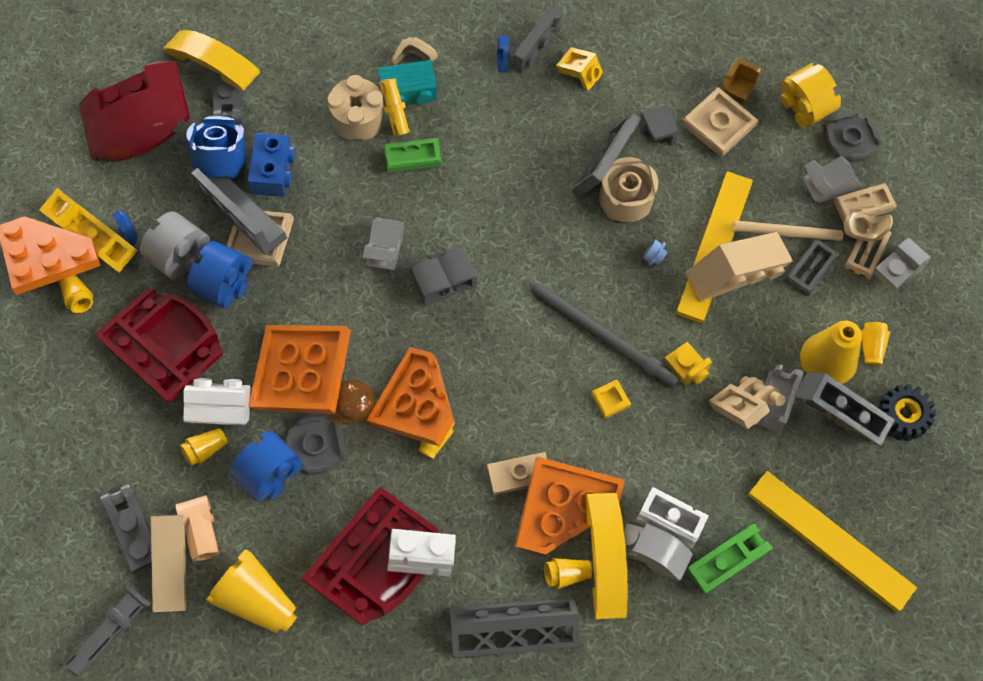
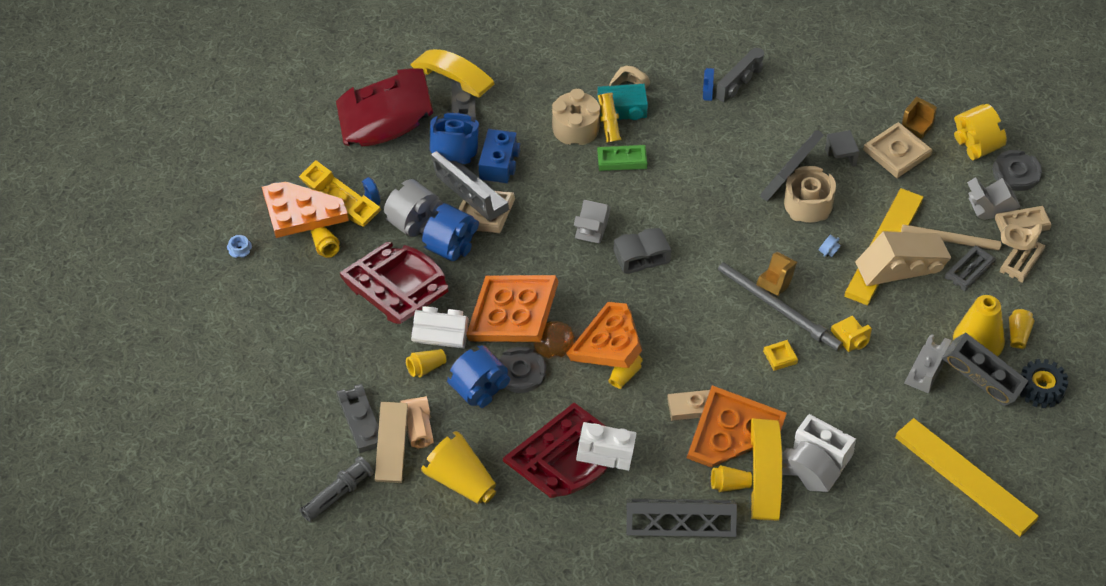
camera: 10 degrees right, 15 degrees down
(581, 65) = (778, 97): yellow bracket -> none
(599, 296) = (778, 275): none -> pearl gold panel
(728, 559) = (873, 481): bright green plate -> none
(747, 402) = (900, 361): tan plate -> none
(902, 265) = (1051, 267): light grey brick -> none

